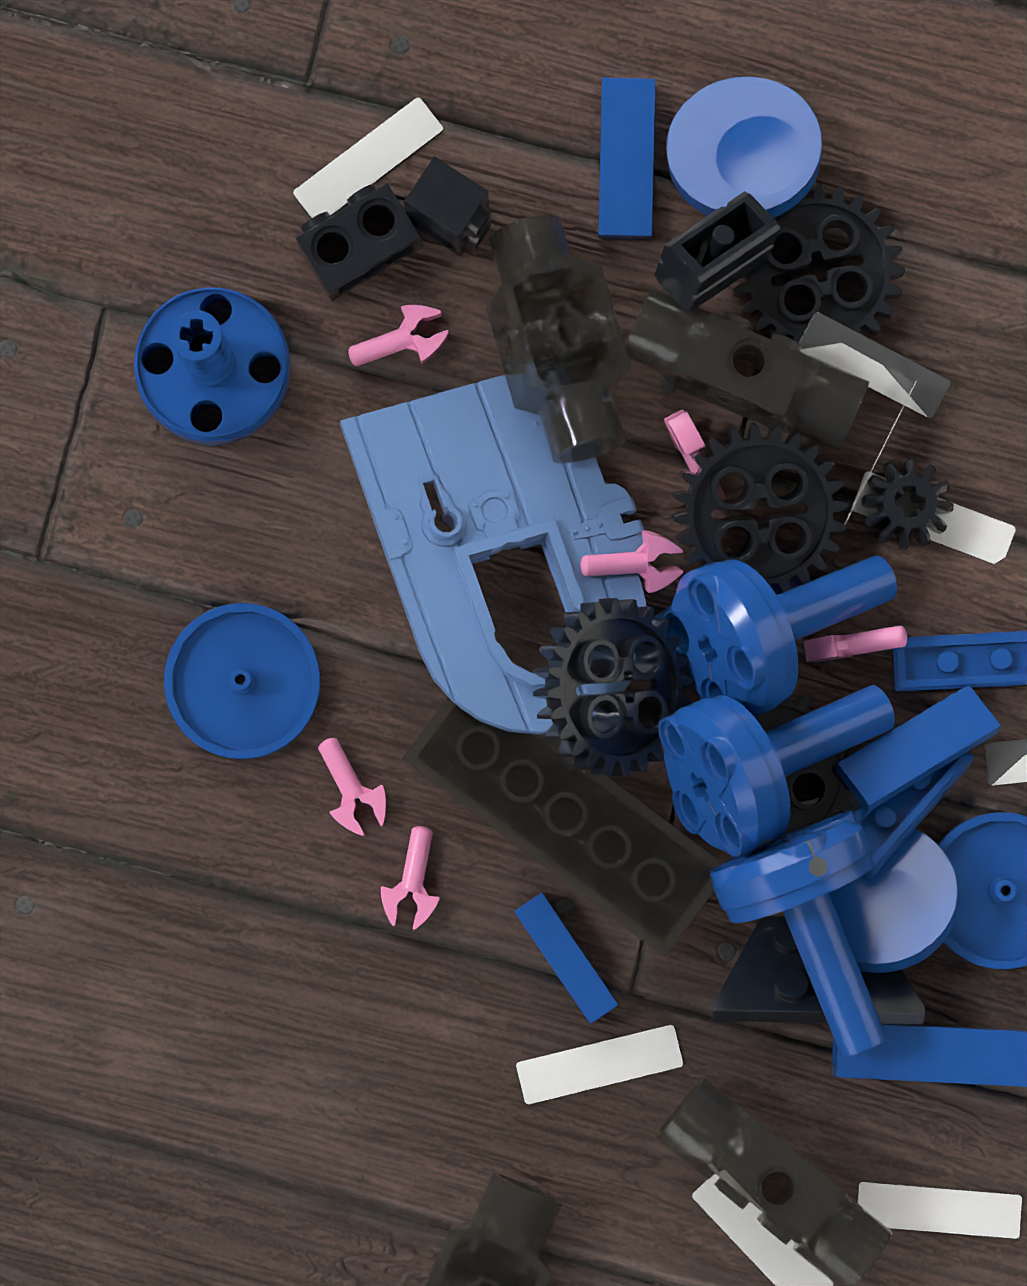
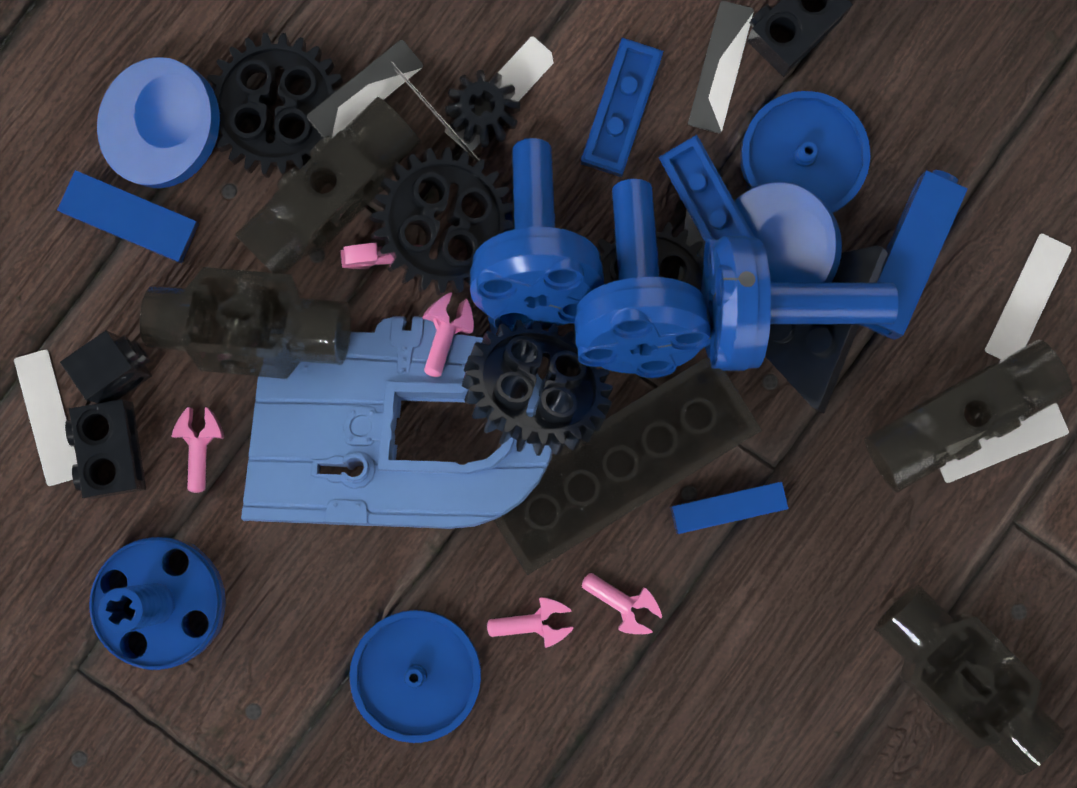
camera: 65 degrees left, 0 degrees up
(599, 1064) = (819, 514): white sticker -> none
(717, 251) = (227, 171): black brick -> none
(844, 646) = (574, 189): bright pink bar -> none
(917, 748) = (674, 173): blue tile -> none

